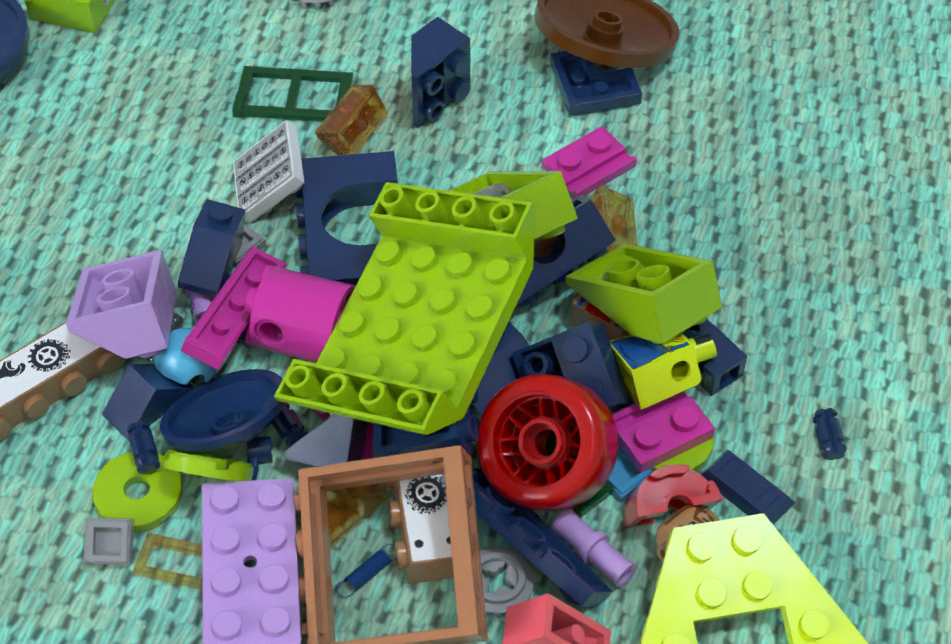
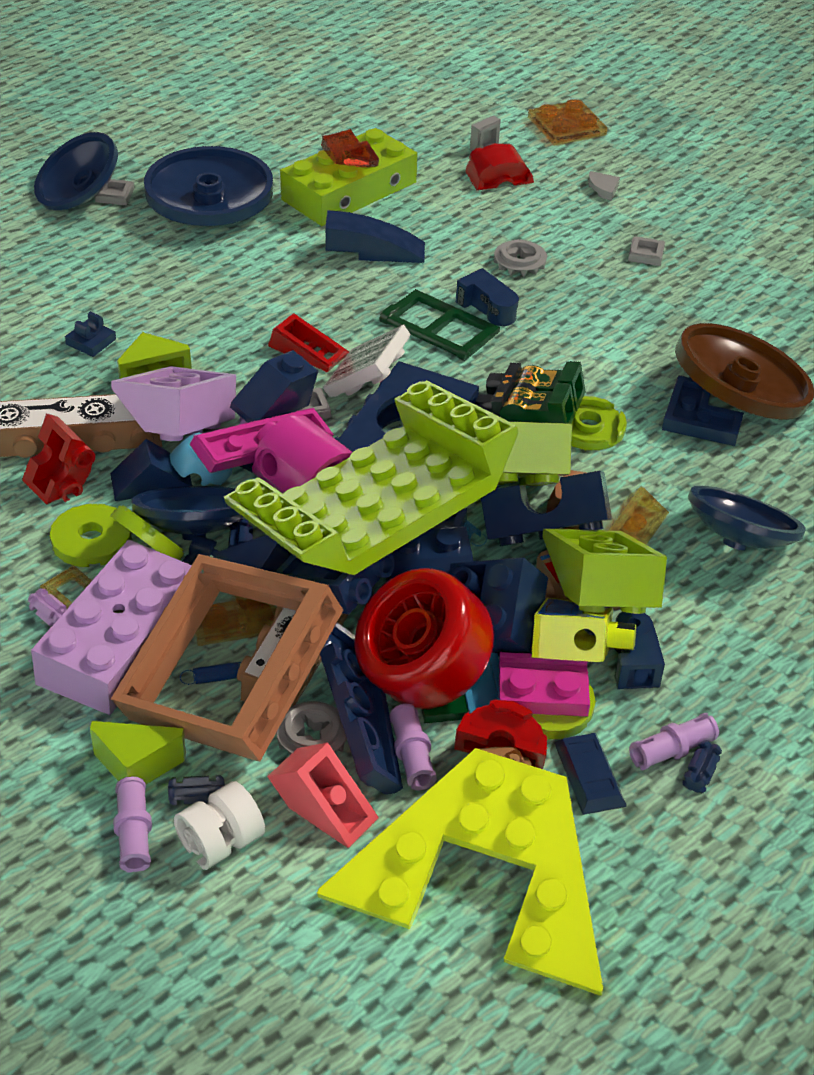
camera: 30 degrees right, 10 degrees down
(52, 433) = (60, 465): none -> red cylinder
(53, 268) = (153, 353): none -> lime slope
(109, 541) = (40, 555): light grey tile -> none
(143, 447) = (116, 495): dark blue piece -> none
(163, 26) = (371, 238): none -> dark blue slope
(163, 591) = (47, 606): none -> lavender piece
(174, 185) = (295, 331): none -> red slope
(323, 44) = (488, 296): none -> dark blue leg
(352, 120) = (470, 357): clear orange slope -> none
(438, 69) = (563, 334): dark blue slope -> none
(444, 139) = (534, 393): none -> dark green hips
(504, 155) = (606, 433): none -> lime tile
(590, 162) = (651, 467): dark pink plate -> none
(709, 176) = (744, 519): none -> dark blue dish
(794, 423) = (673, 741): none -> lavender pin

